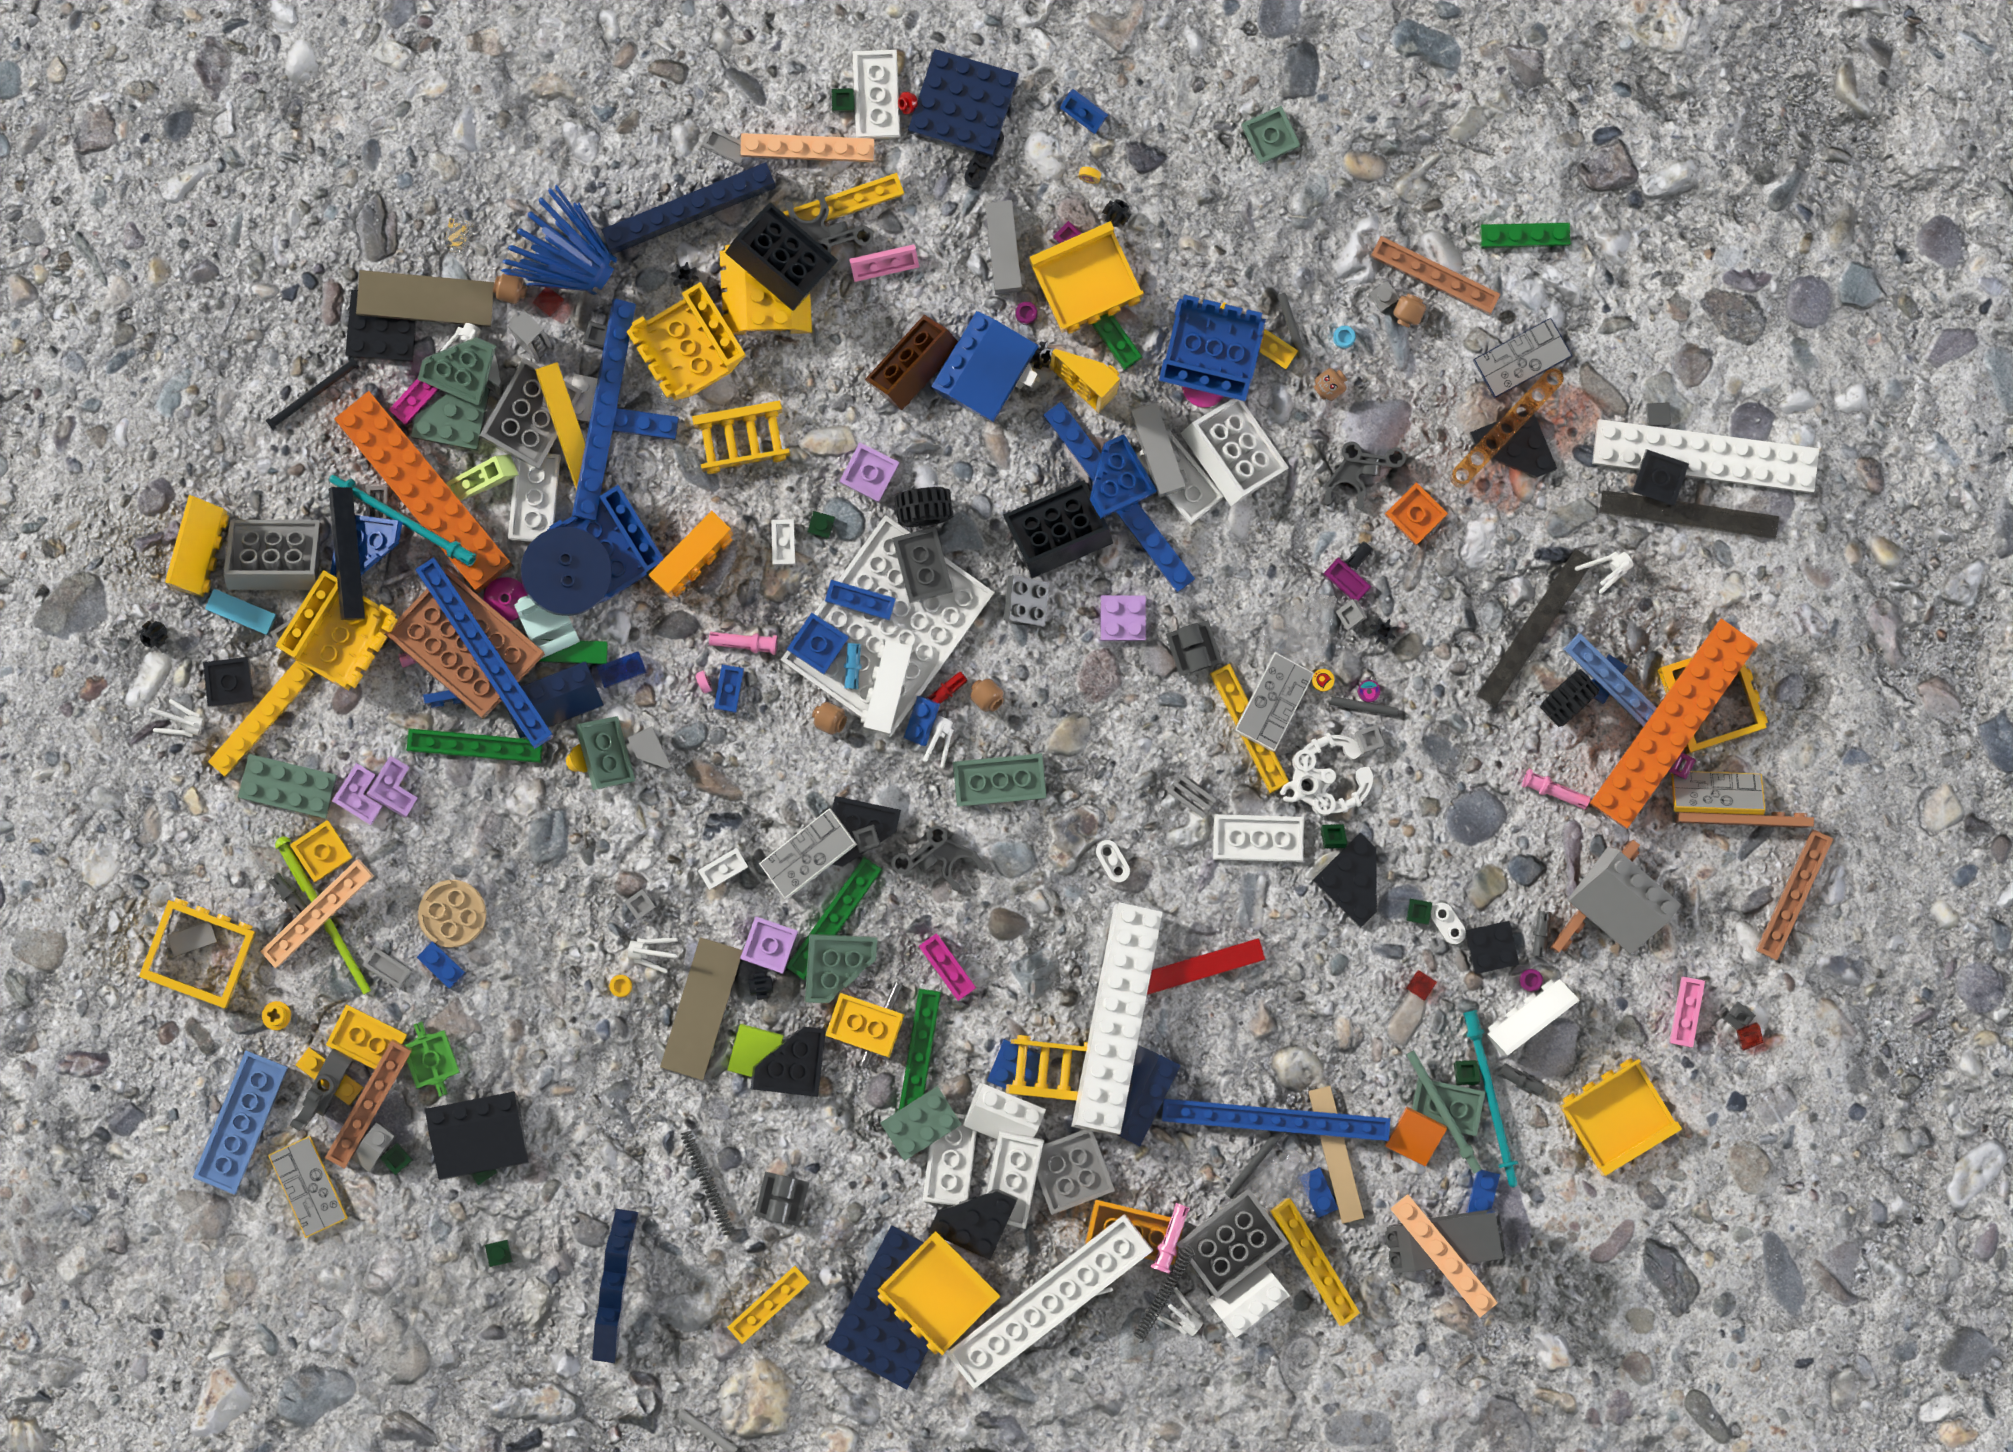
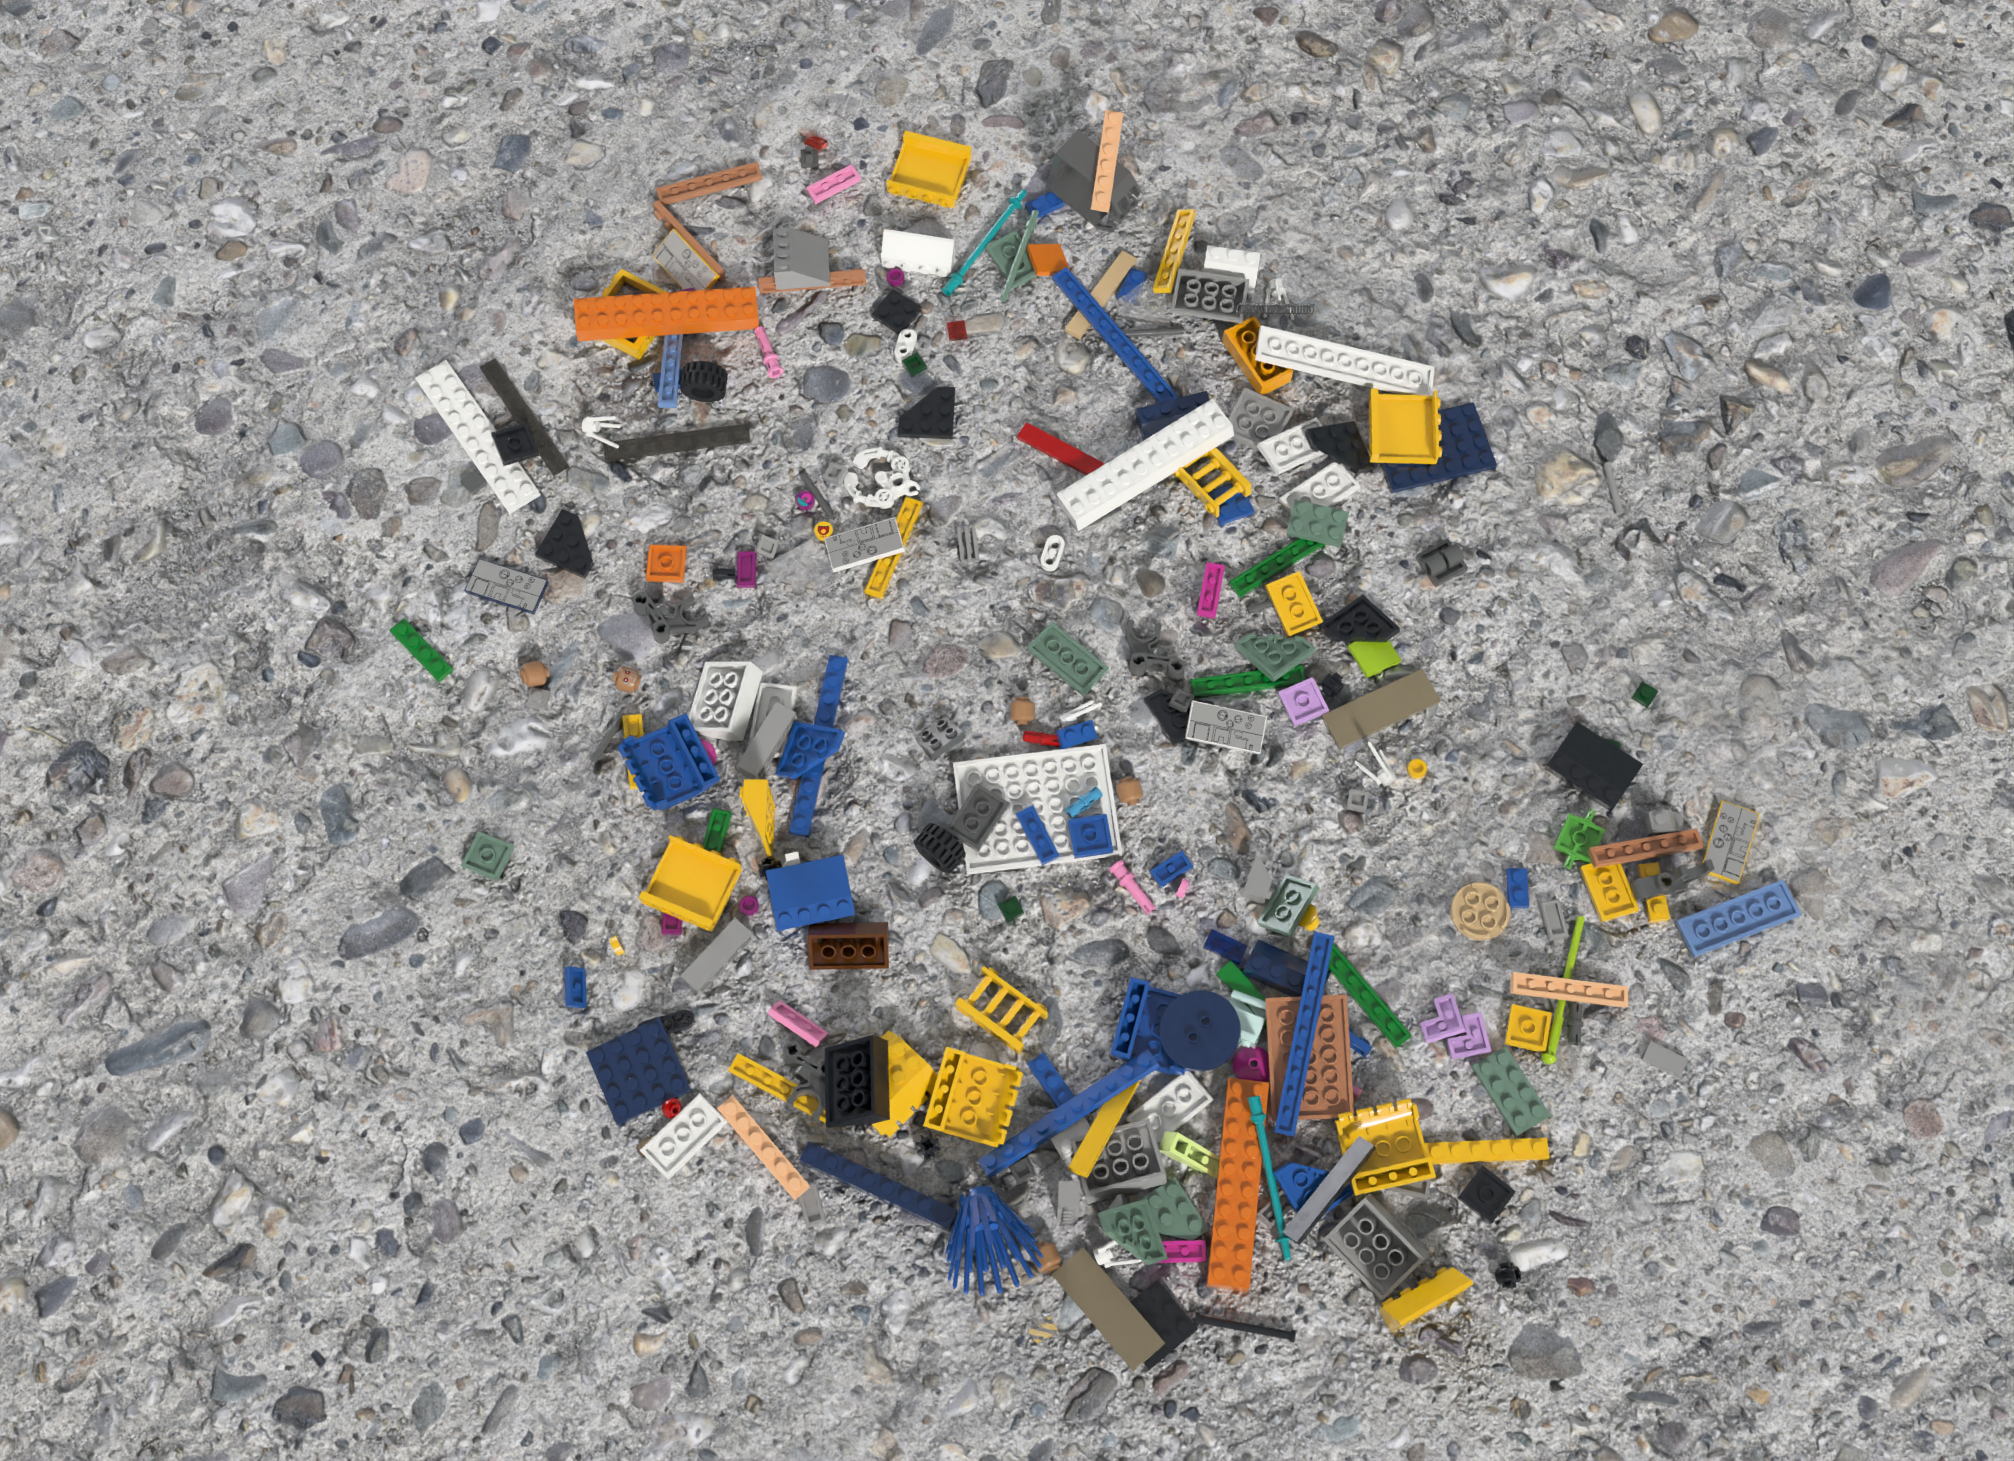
camera: 125 degrees left, 15 degrees down
(191, 723) = (1539, 1192): white plant -> none
(220, 920) = (1698, 1028): yellow window -> none
(240, 612) = (1434, 1233): medium azure tile -> none
(276, 1015) = (1653, 961): yellow piece -> none
(396, 1159) = (1657, 802): dark green plate -> none
(548, 301) = (1033, 1222): clear red tile -> none
(613, 1286) = (1598, 598): dark blue arch -> none
(691, 555) = (1109, 965): light orange brick -> none
(707, 1184) = (1471, 620): dark grey piece -> none
(723, 868) = (1285, 771): white plate -> none
(768, 1304) = (1508, 516): yellow plate -> none
(783, 542) = (1045, 921): white plate -> none
(842, 100) = (708, 1153): dark green plate -> none
(869, 472) = (948, 908): lavender plate -> none
(887, 688) = (1076, 769): white brick -> none
(999, 1111) = (1266, 487): white slope -> none
(1057, 529) = (874, 761): black slope -> none
(1117, 212) = (628, 904): black gear -> none
(1123, 618) = (895, 676): lavender plate -> none
(1167, 1248) = (1249, 322): bright pink pin -> none
(1193, 648) = (875, 617): dark grey plate -> none
(1258, 838) = (956, 487): white tile -> none
(1333, 836) = (914, 445): dark green plate -> none
(1344, 337) = (587, 700): medium azure tile -> none
(1386, 626) = (763, 518): black gear -> none
(1435, 275) = (496, 679): nougat plate -> none
(1467, 1072) = (984, 264): dark green plate -> none
(1511, 418) = (555, 546): clear orange beam -> none
(1521, 1079) = (959, 235): dark grey pin -> none
(1542, 934) = (862, 292): dark grey pin -> none

